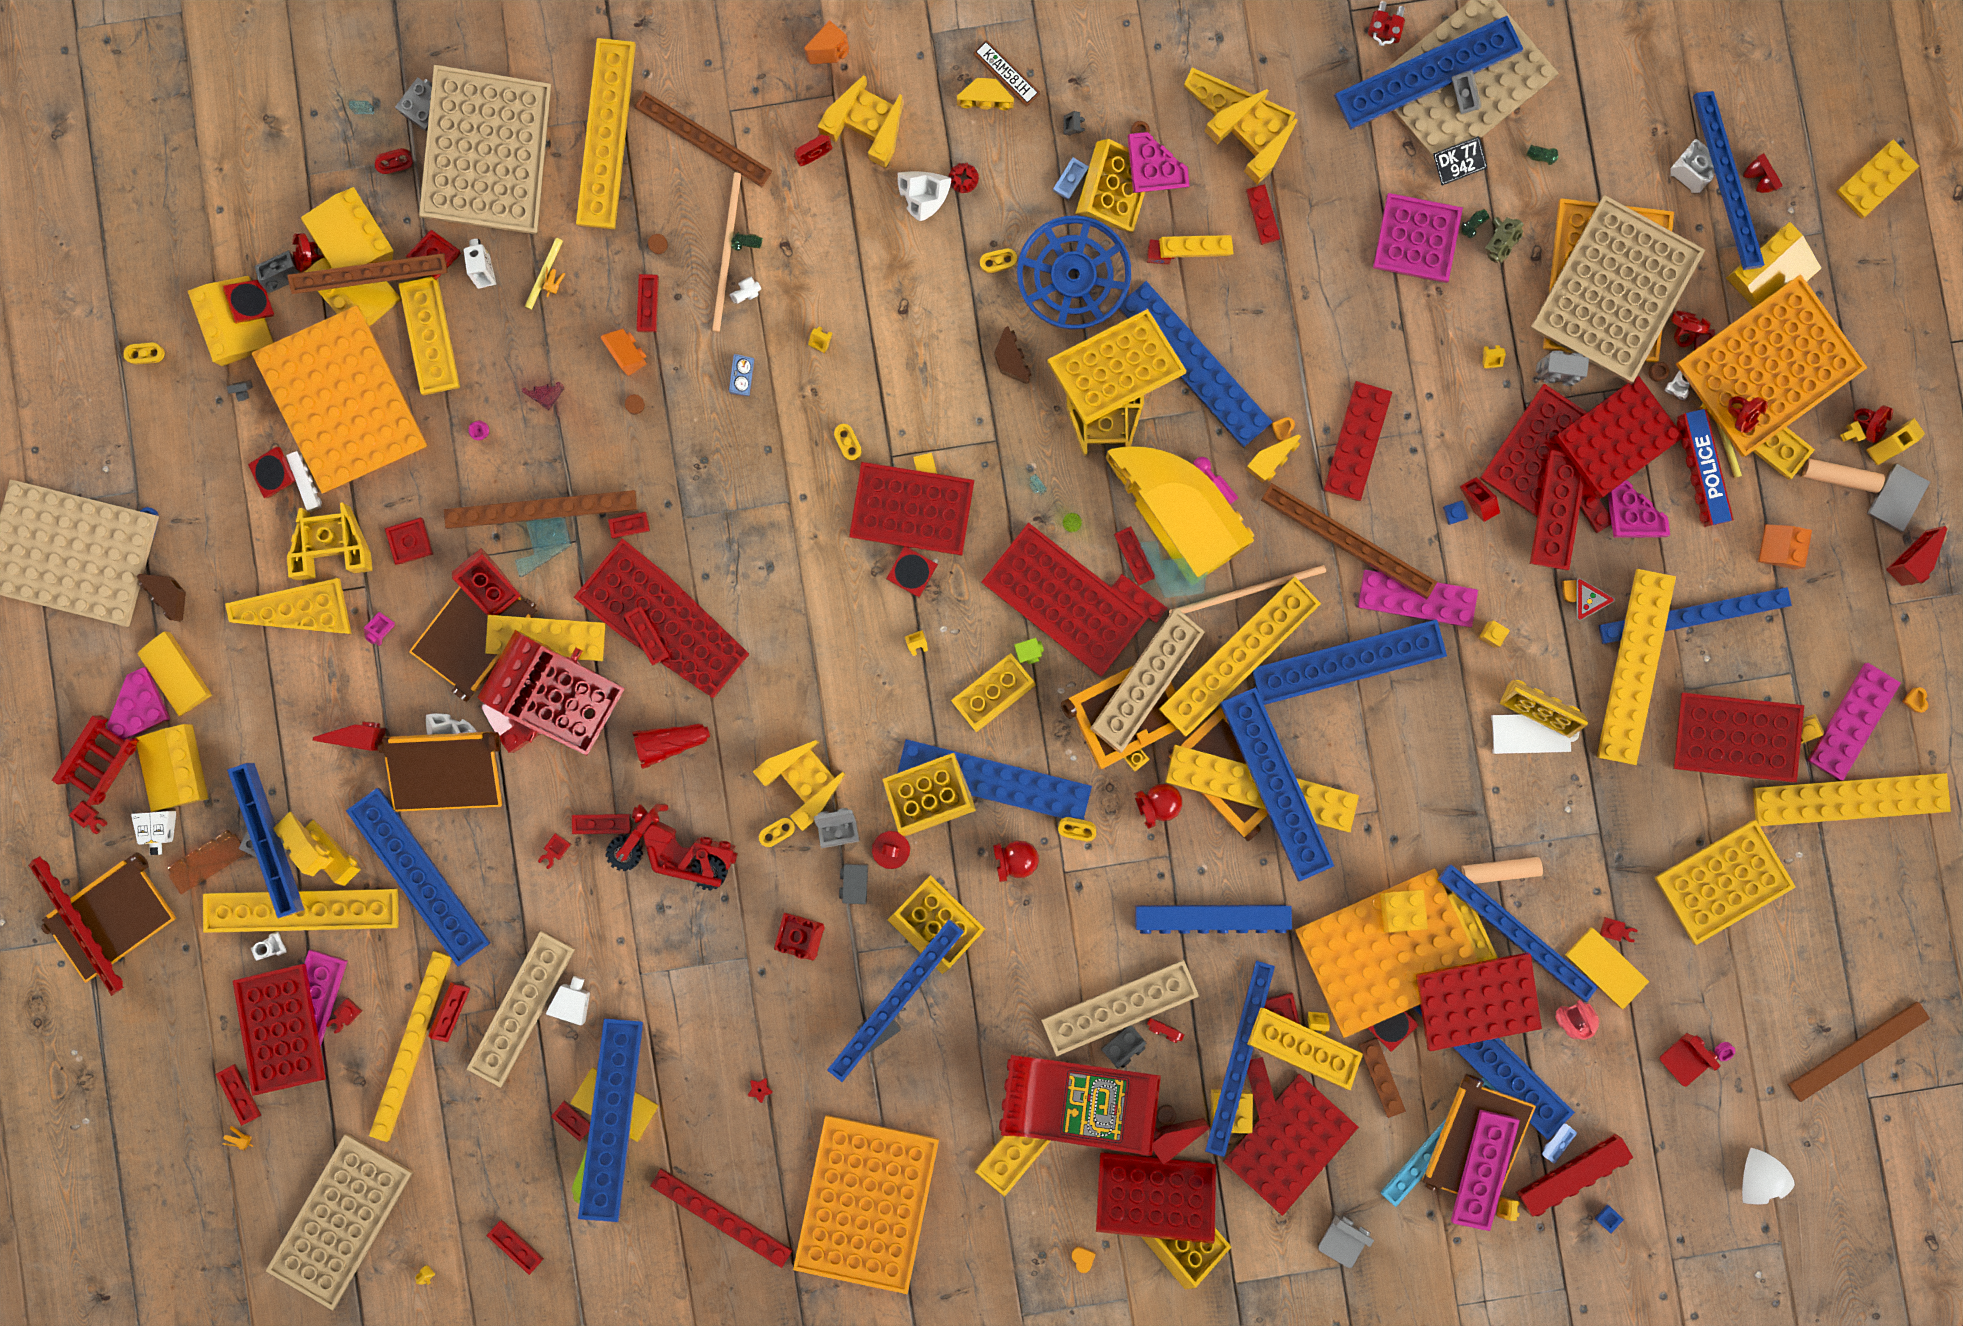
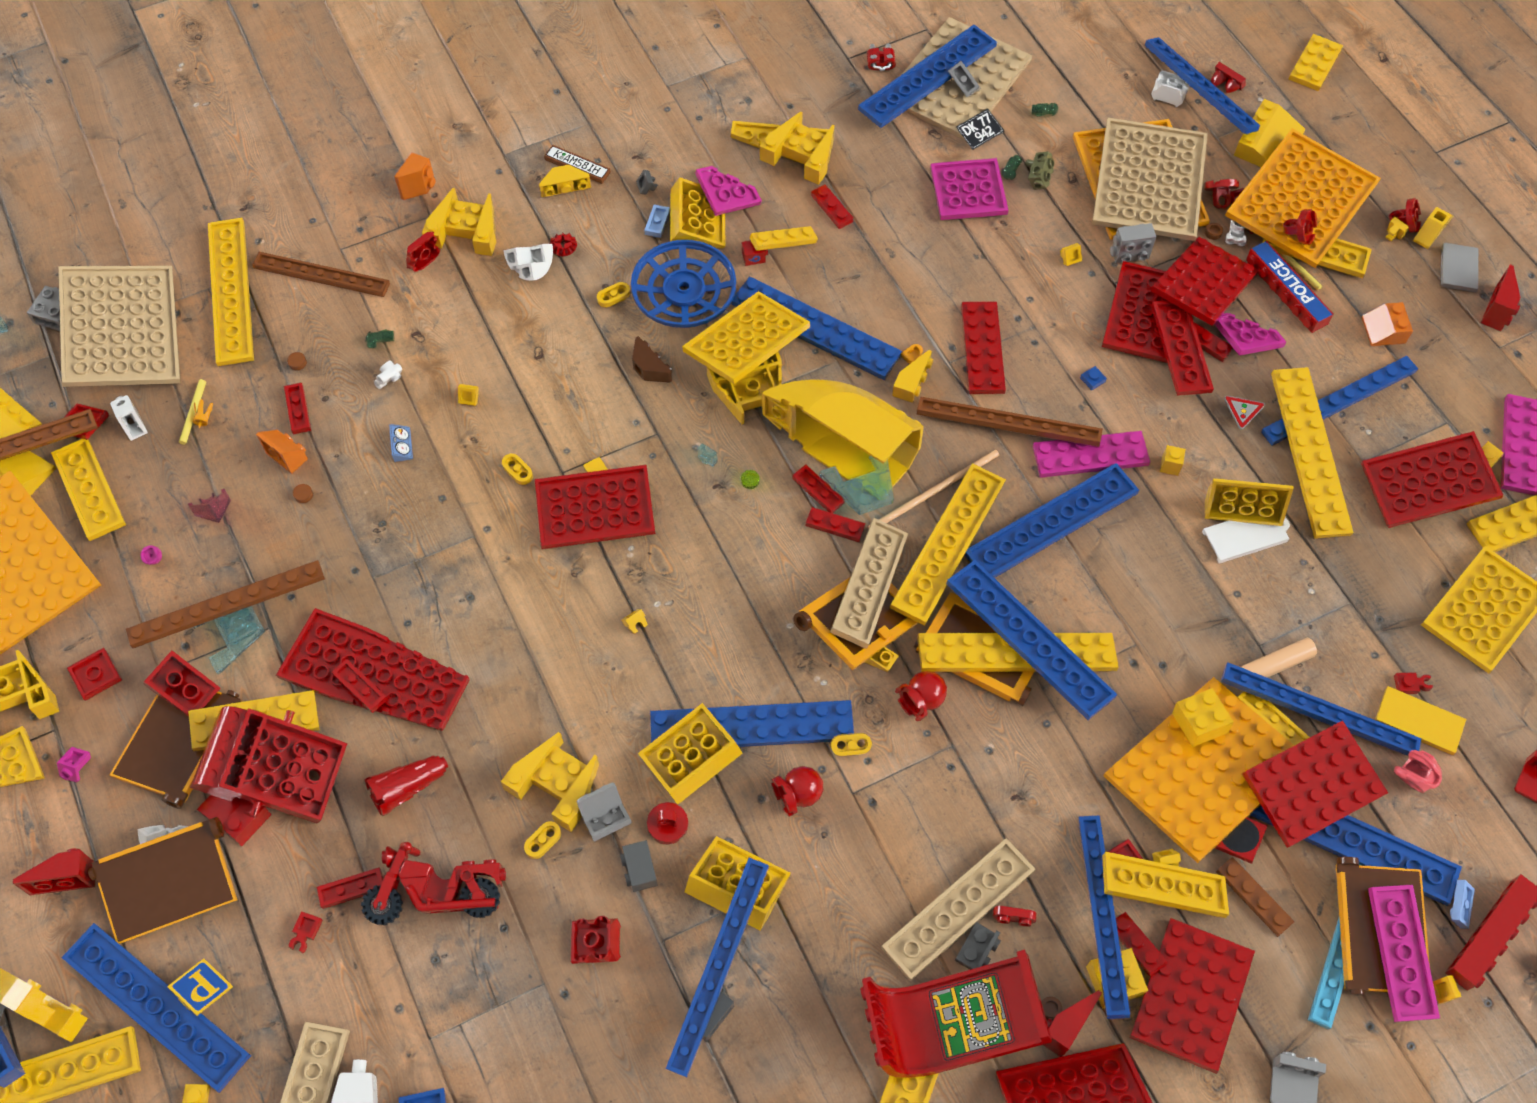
camera: 20 degrees left, 25 degrees down
(394, 161) = (32, 358): red plate -> none
(458, 875) = (200, 987): none -> piece
(629, 525) = (319, 596): red plate -> none
(726, 252) = (363, 353): light nougat piece -> none
(912, 571) = (611, 561): black tile -> none
(993, 692) = (724, 644): yellow slope -> none
(1029, 651) = (746, 596): lime brick -> none
(1064, 599) = (765, 543): red plate -> none
(1213, 918) = (1017, 788): blue brick -> none
(1481, 499) = (1111, 360): red slope -> none
(1569, 590) = (1222, 410): light orange tile -> none
(1843, 475) = (1405, 263): light nougat brick -> none

